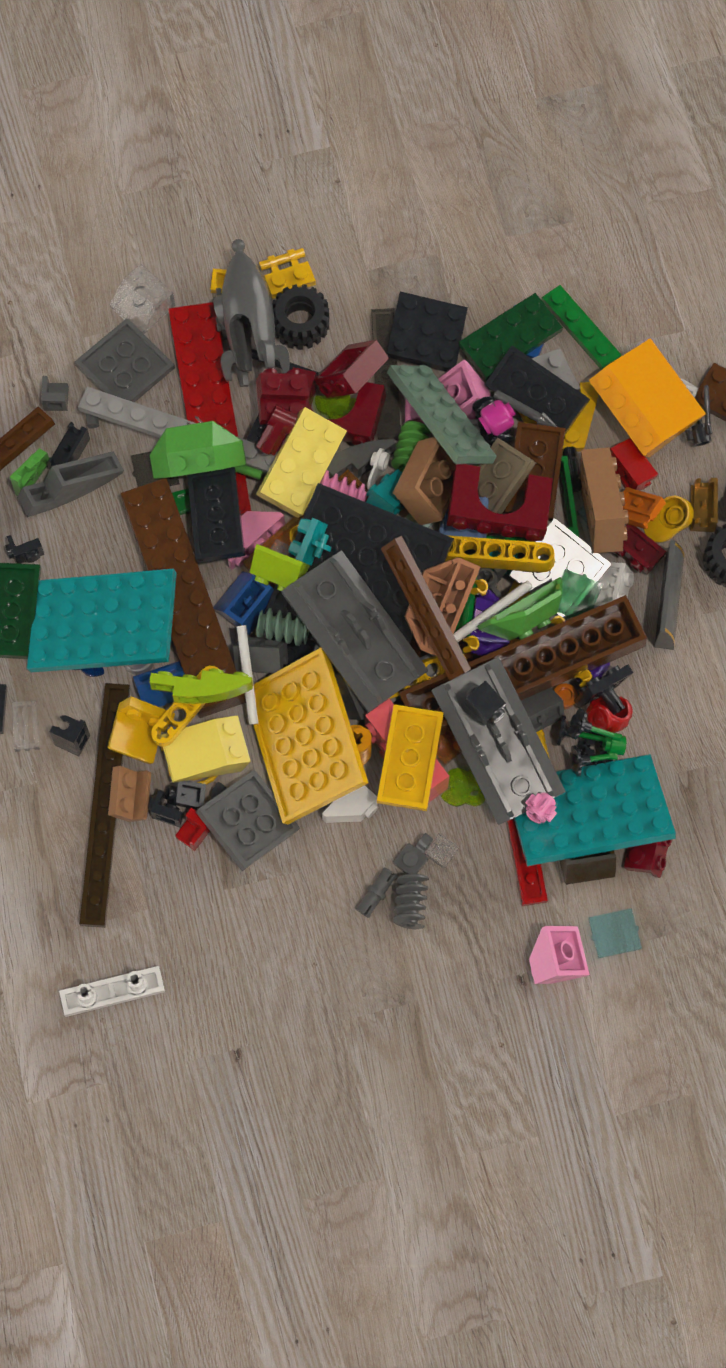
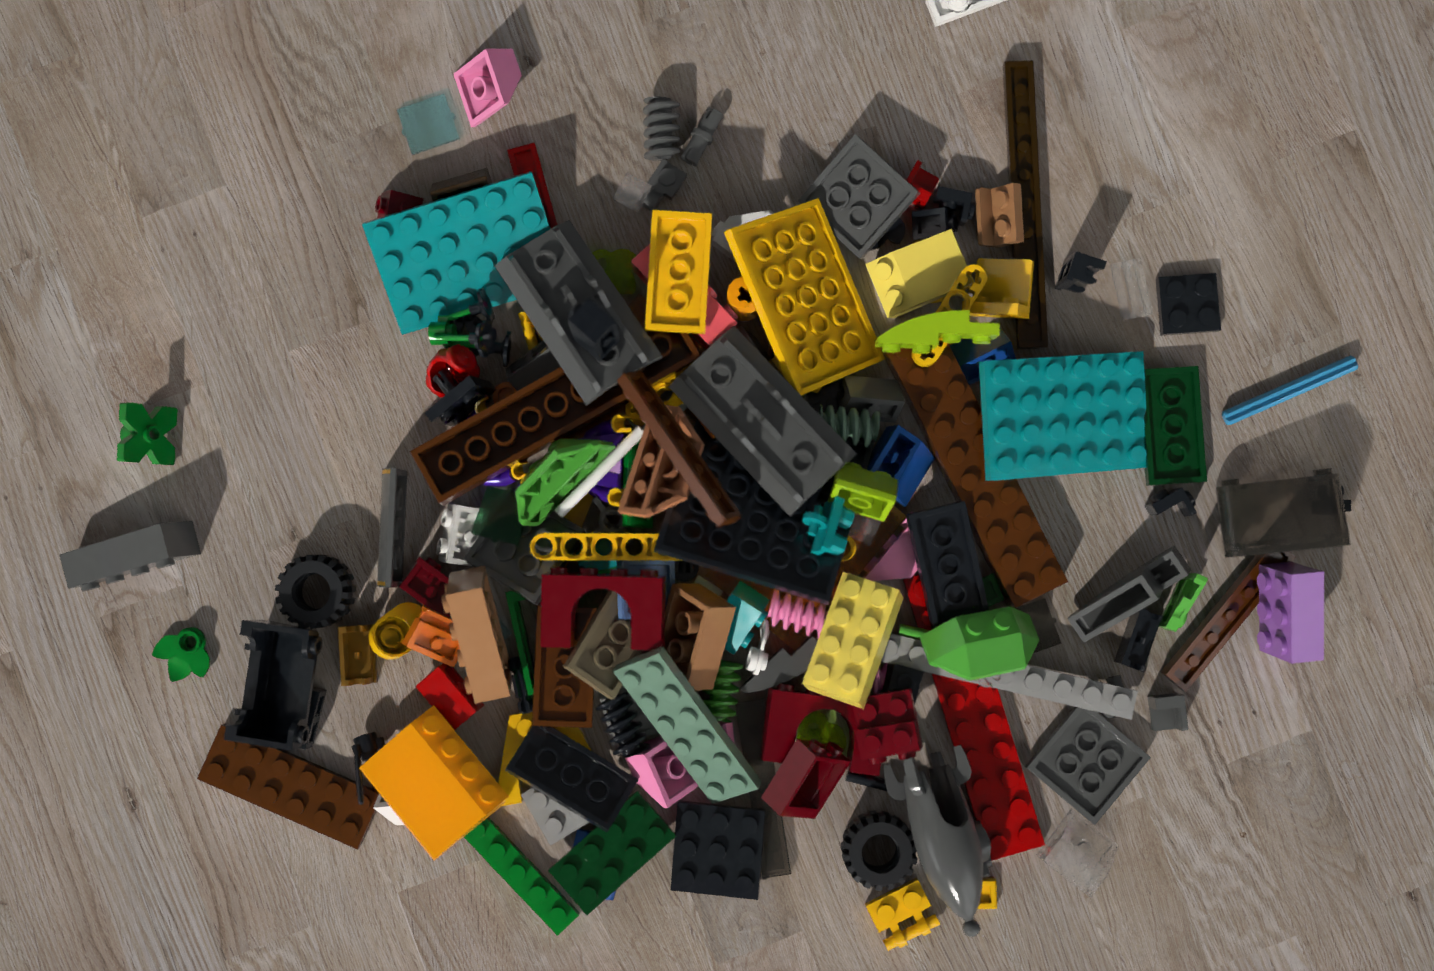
camera: 175 degrees right, 15 degrees up
(246, 668) = (883, 369): white bar -> none
(278, 425) = (887, 683): dark red piece -> none
(497, 417) = (616, 721): dark pink head -> none
(541, 419) = (561, 735): dark grey piece -> none
(541, 808) = (520, 235): bright pink gear -> none

